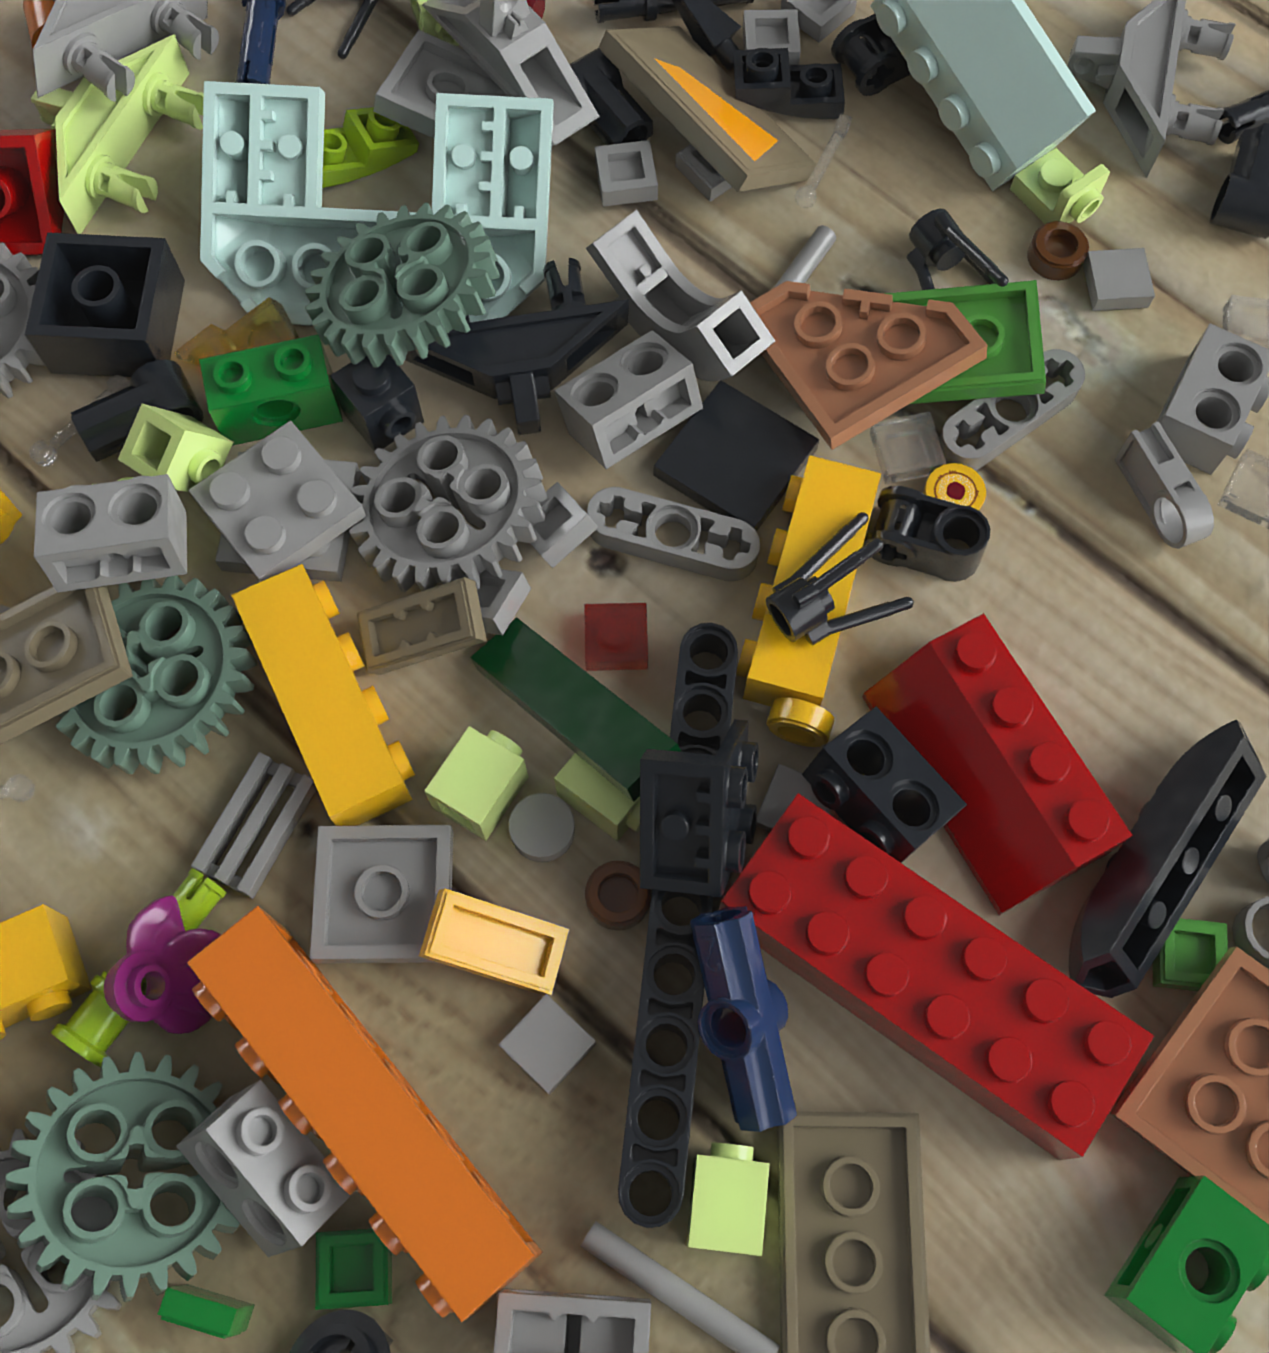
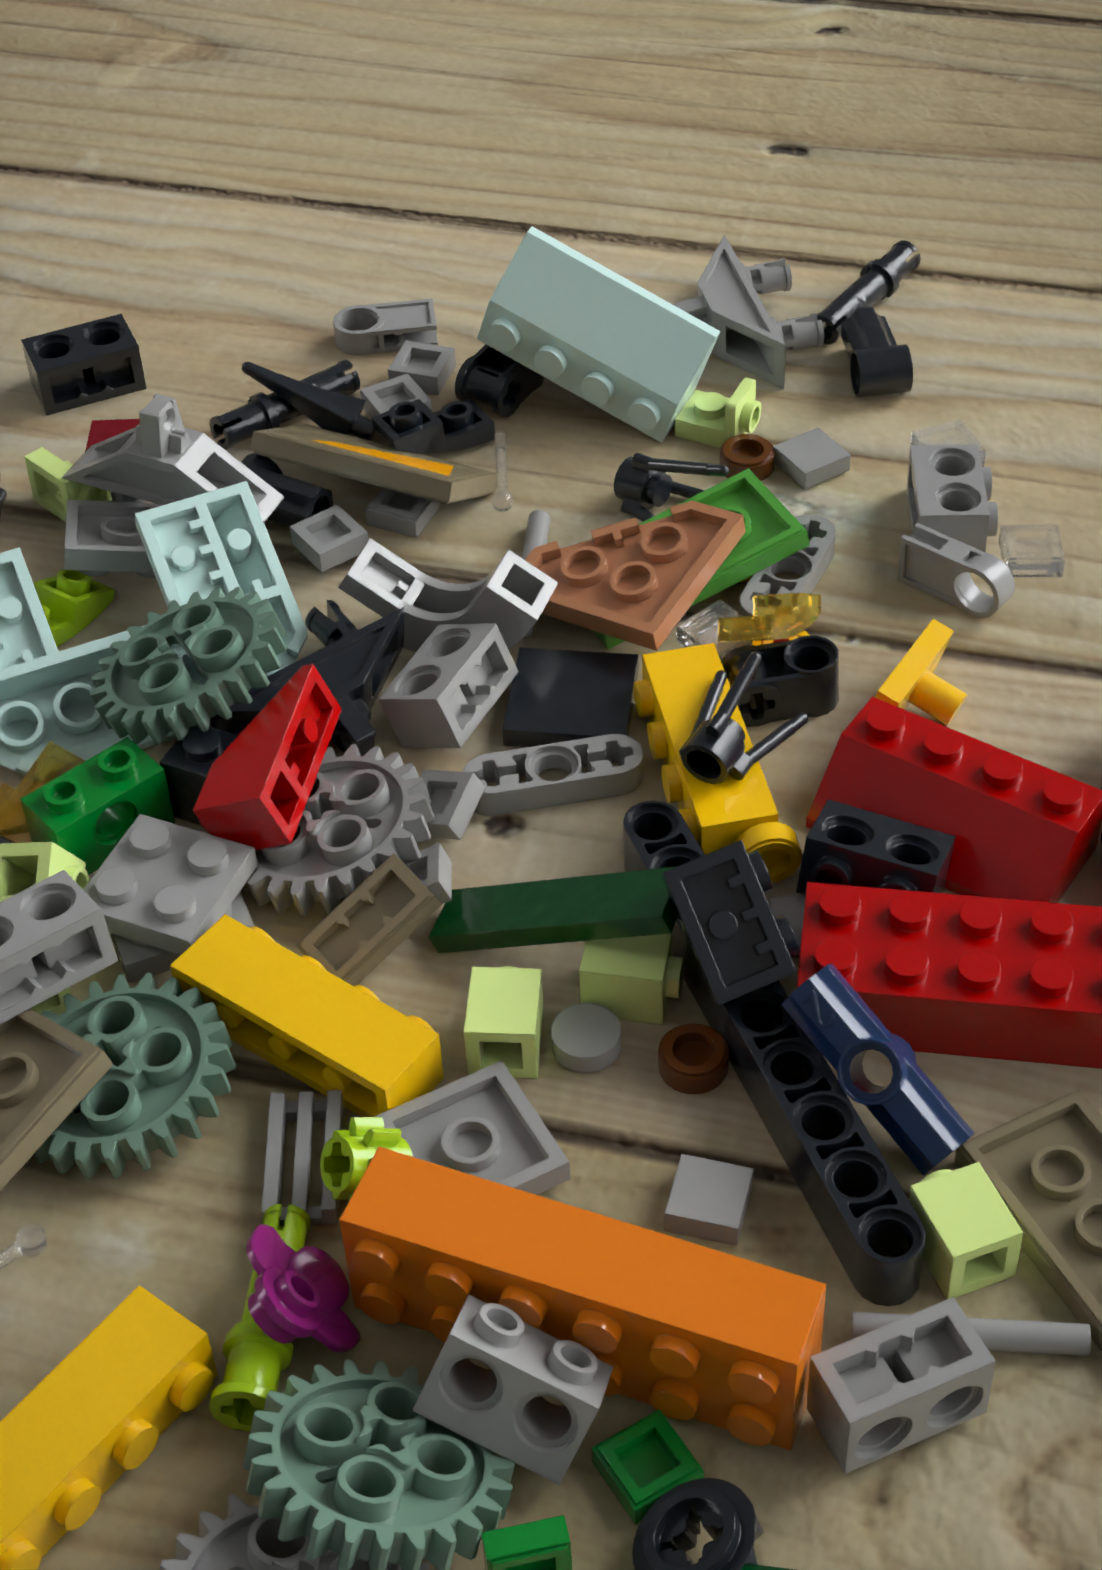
camera: 25 degrees left, 25 degrees down
(280, 877) = (351, 1151): none -> lime gear
(415, 429) = (268, 771): none -> red slope
(494, 942) = (605, 1132): yellow tile -> none
(616, 636) = (551, 858): clear red plate -> none
(955, 473) = (773, 618): none -> clear yellow slope
(1048, 601) = (914, 678): none -> yellow tile

